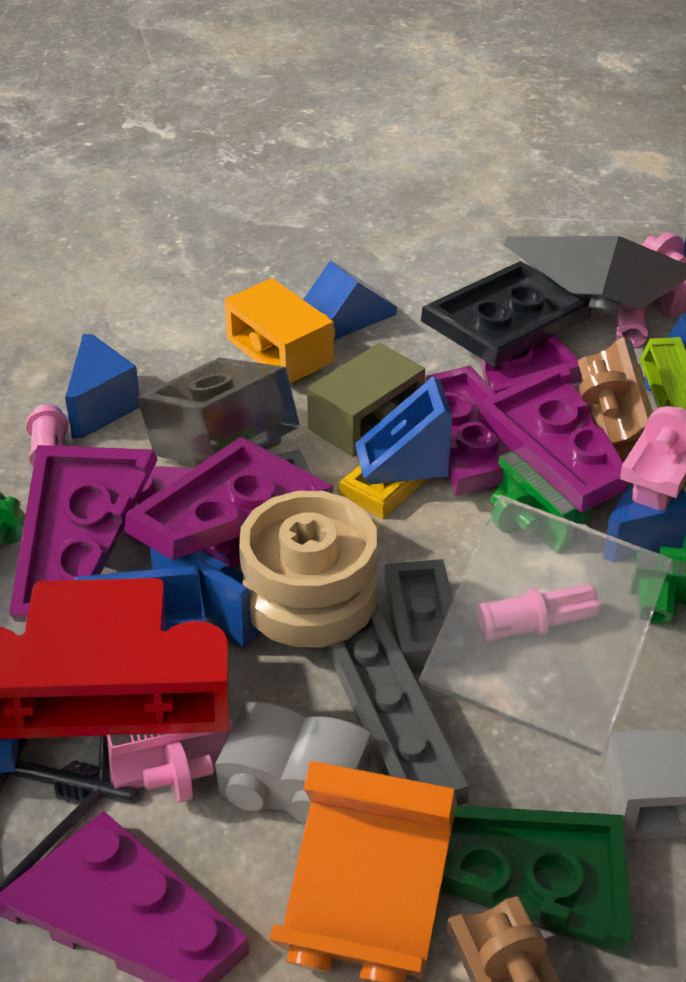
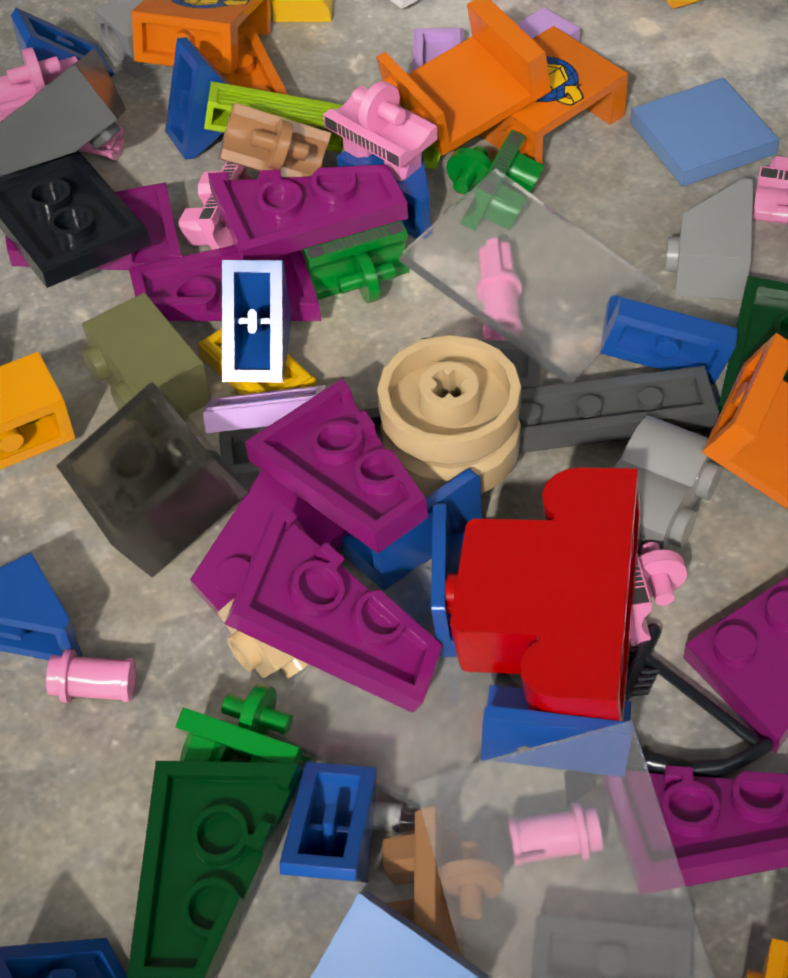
camera: 75 degrees left, 10 degrees up
(320, 458) = (255, 408): none -> lavender tile
(511, 746) = (665, 338): none -> blue panel

